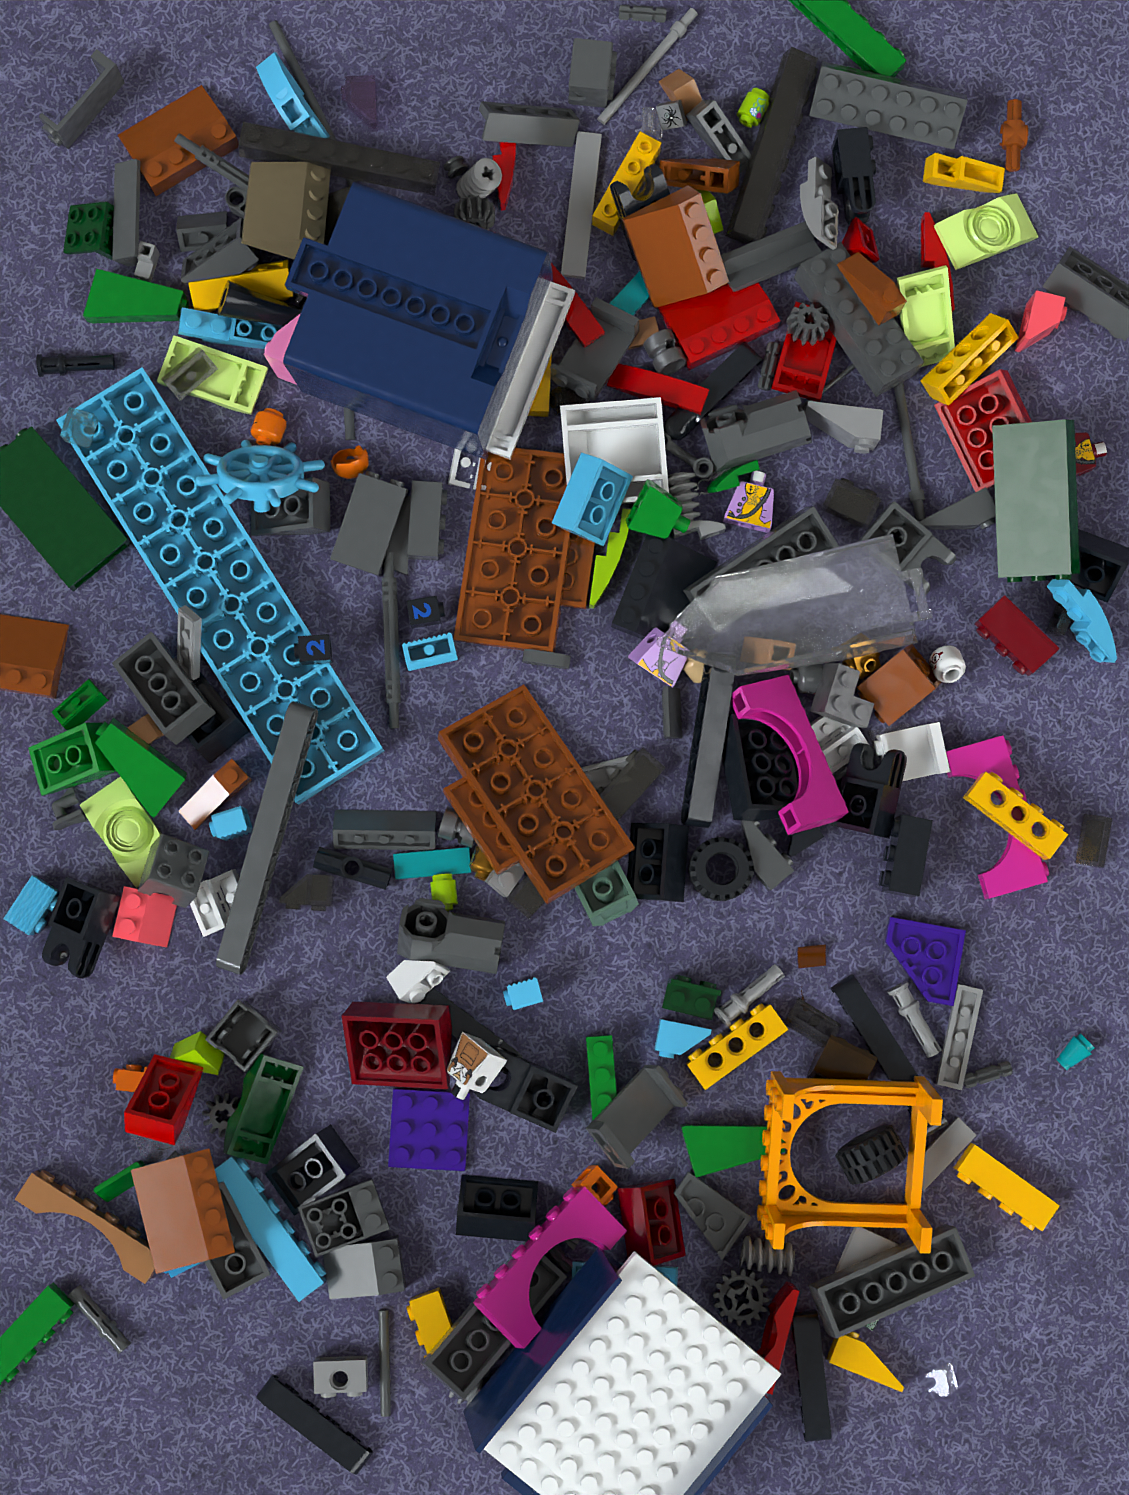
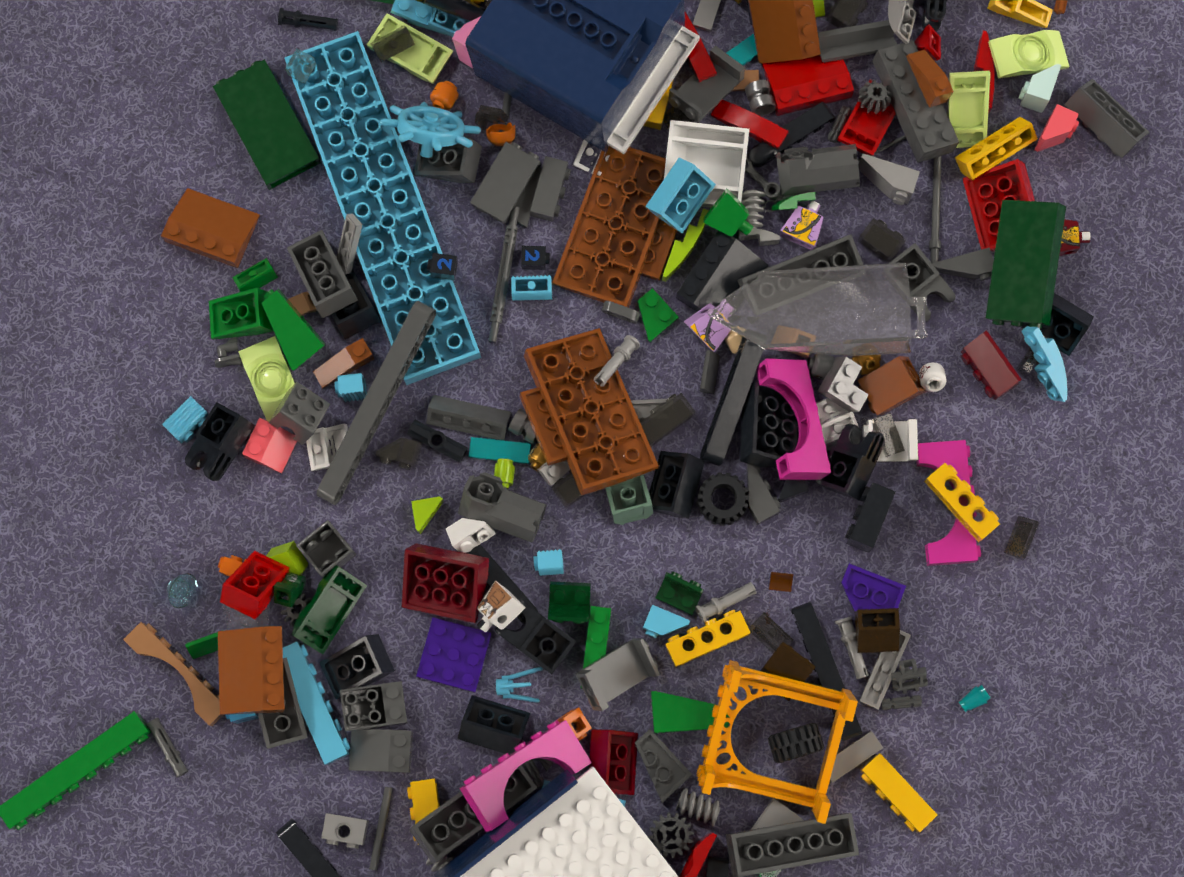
camera: 20 degrees right, 5 degrees down
(74, 1121) = (181, 590): none -> clear light blue piece
(209, 1091) = (291, 586): none -> dark green leg
(331, 440) = (489, 114): none -> clear smoke bracket
(355, 959) = (424, 511): none -> lime slope
(501, 1157) = (506, 685): none -> medium azure plant
(558, 1037) = (569, 602): none -> dark green bracket
(559, 713) = (621, 354): none -> light grey pin
(590, 652) = (655, 314): none -> green wing
(902, 738) = (886, 426): none -> clear smoke slope
(943, 995) = (877, 630): none -> dark brown slope
(1001, 1038) = (907, 674): none -> dark grey piece
(1009, 274) = (1038, 90): none -> light aqua slope

